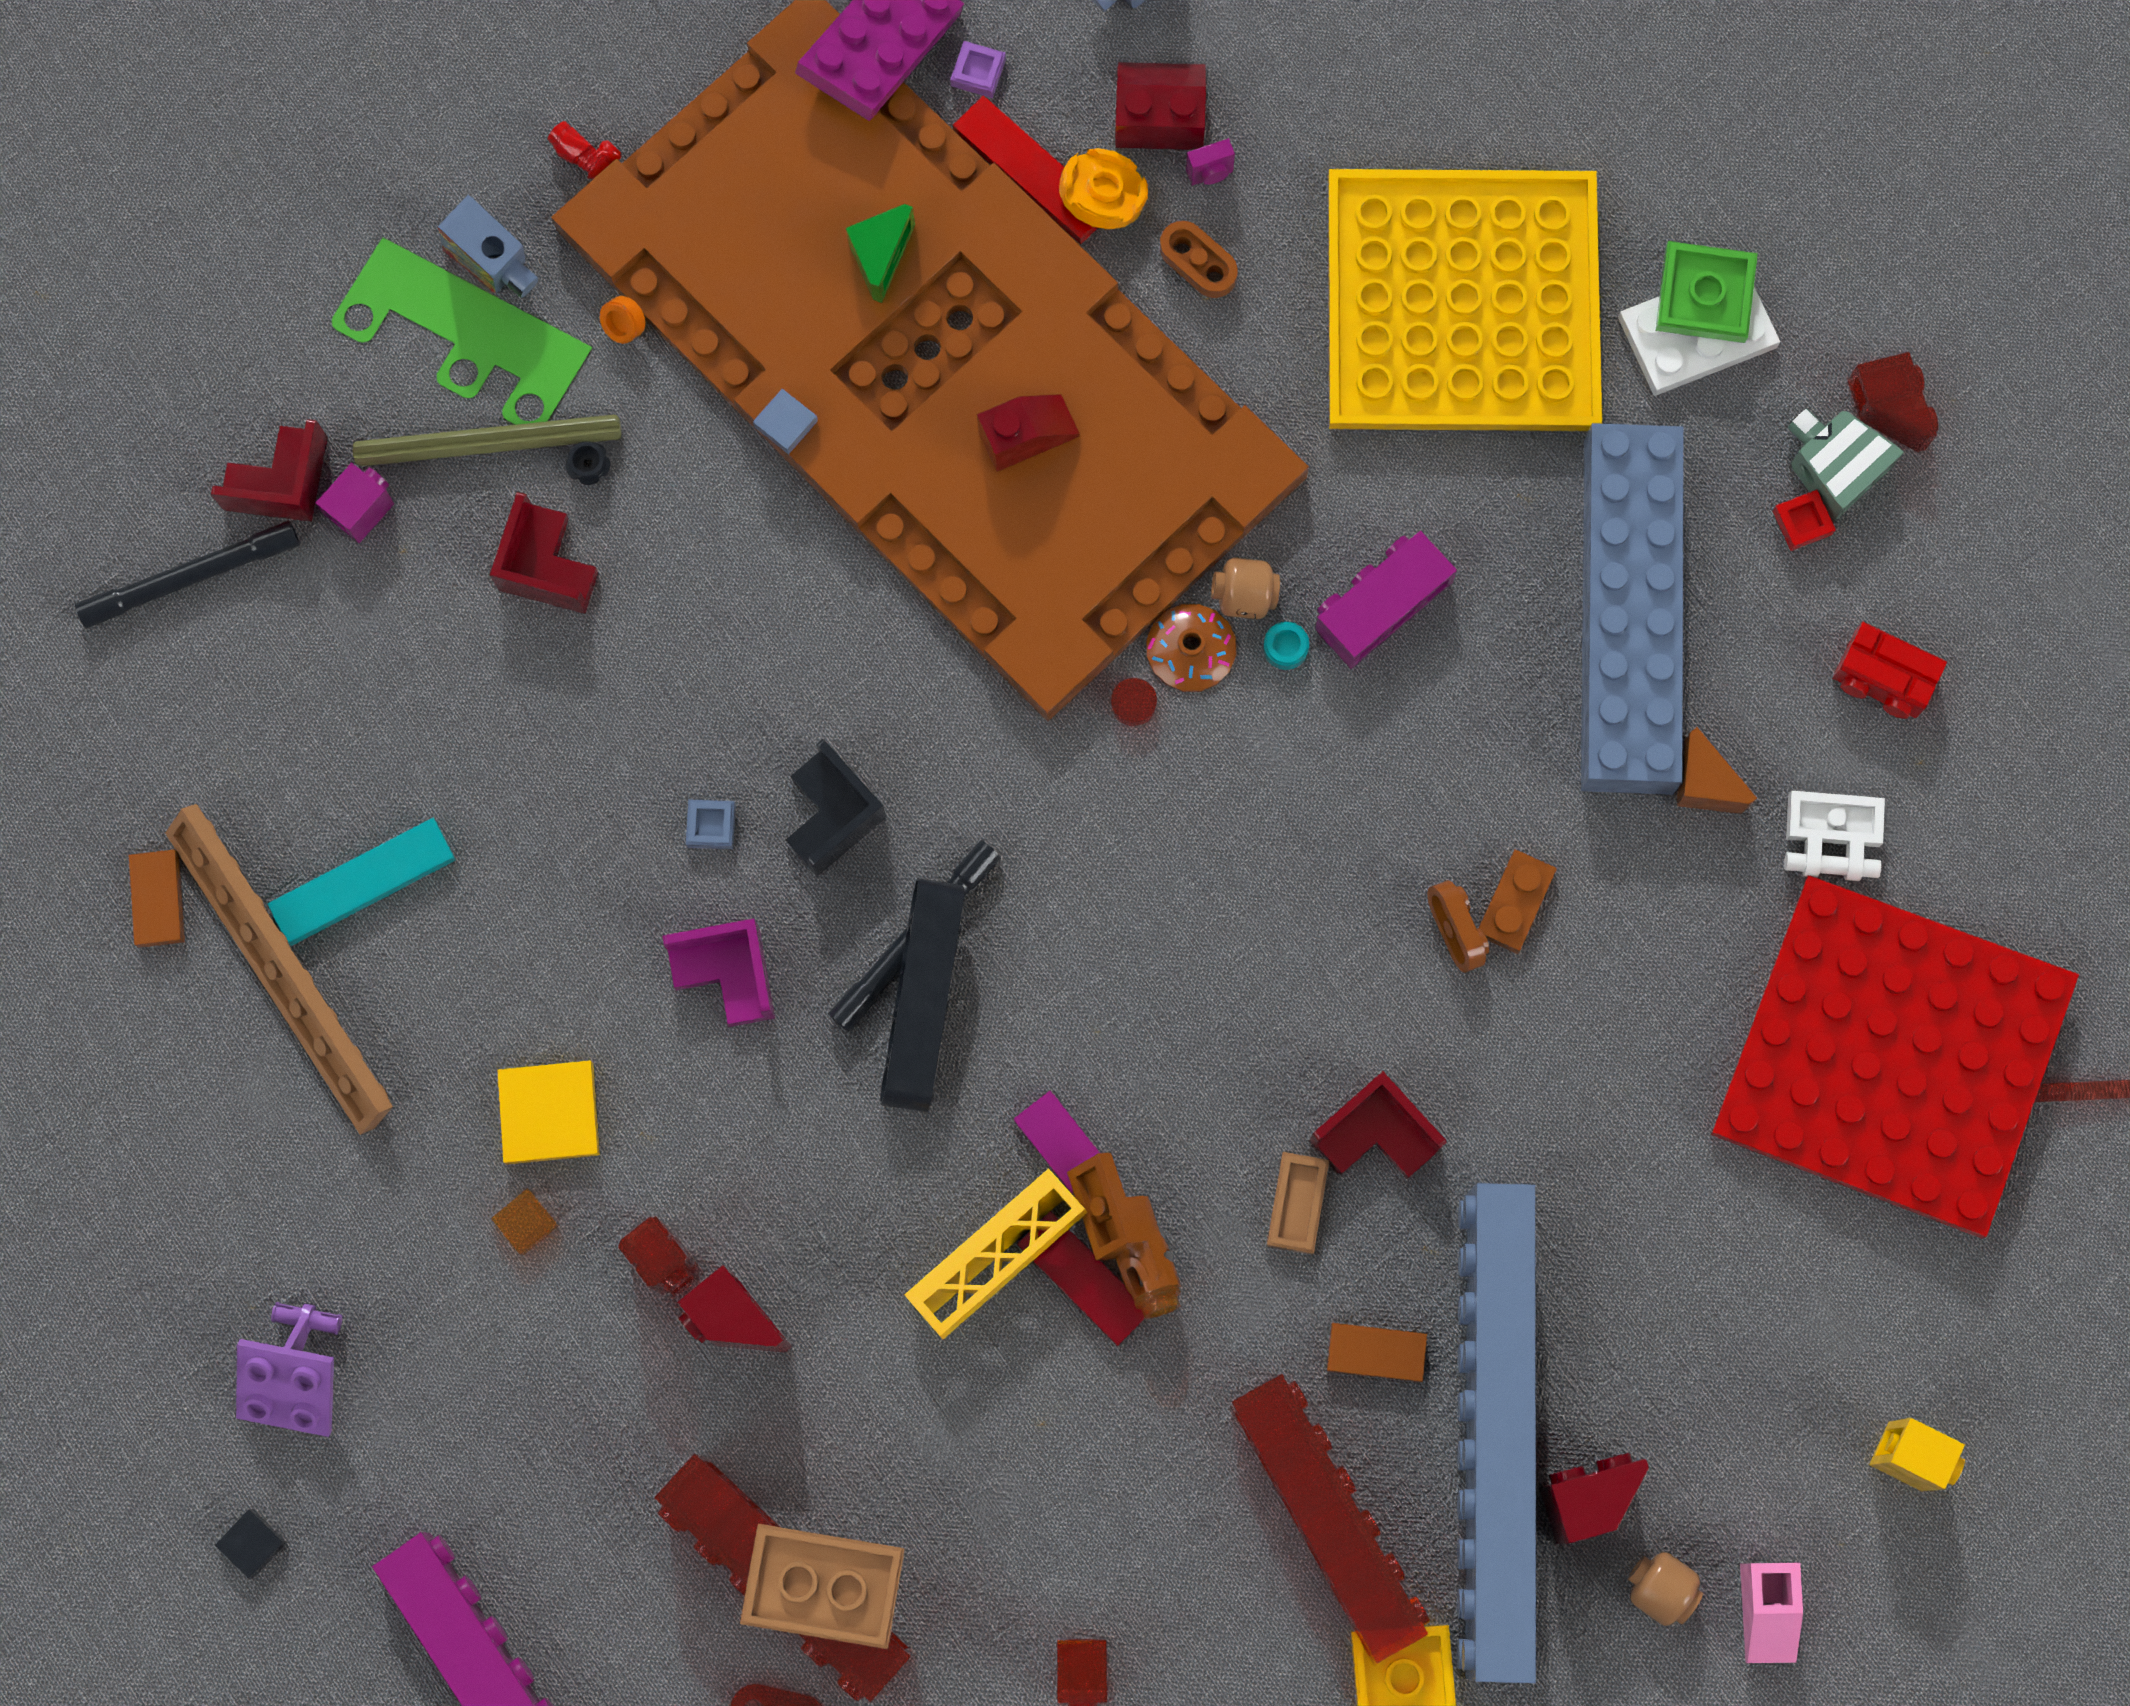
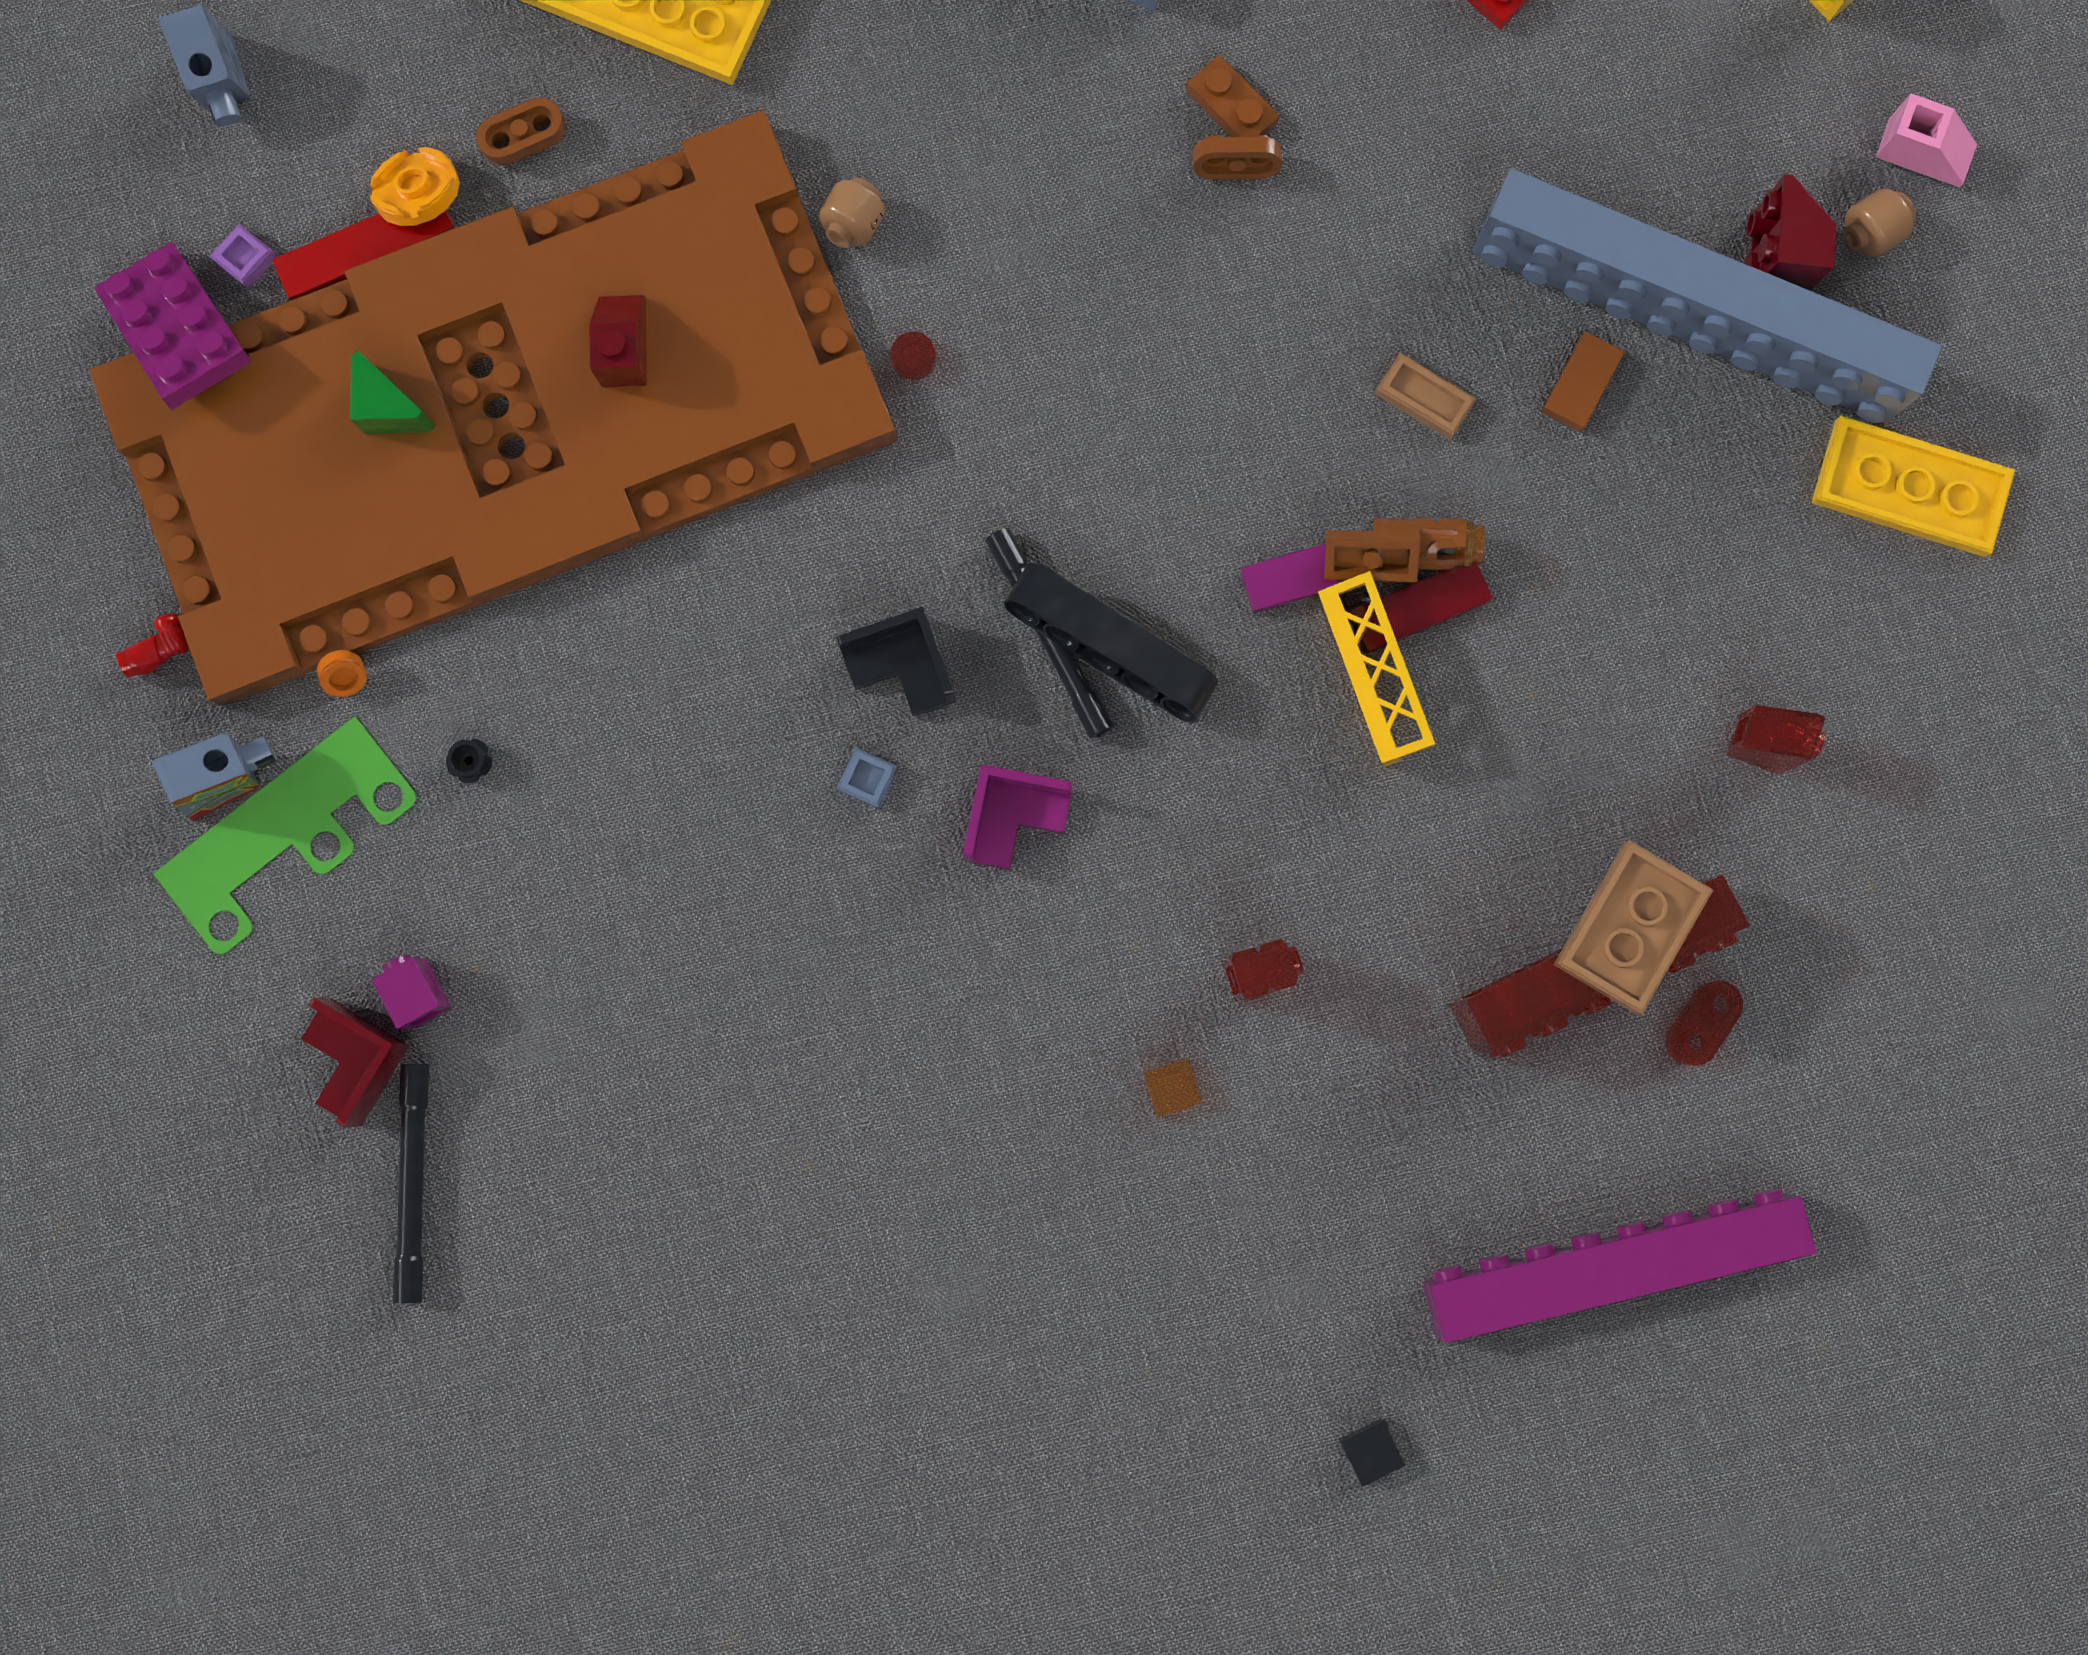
camera: 70 degrees left, 5 degrees up
(156, 898) = (720, 1326): dark orange tile -> none
(279, 969) = (837, 1232): medium nougat plate -> none
(285, 1383) = (1241, 1364): medium lavender plate -> none
(361, 881) = (786, 1123): teal tile -> none
(486, 440) = (403, 847): olive axle -> none
(529, 561) = (550, 850): dark red panel -> none
(548, 1112) = (1078, 1028): yellow tile -> none
(729, 1316) = (1342, 926): dark red slope -> none
(785, 421) = (513, 555): sand blue tile -> none
(1160, 106) = (358, 104): dark red slope -> none
(1187, 668) = (886, 306): dark orange dish -> none
(1210, 163) = (433, 82): magenta plate -> none
(1286, 645) = (917, 203): teal tile -> none
(1329, 1519) = (1719, 474): clear red brick -> none
(1381, 1118) = (1381, 290): dark red panel -> none
(1384, 598) = (912, 97): magenta brick -> none

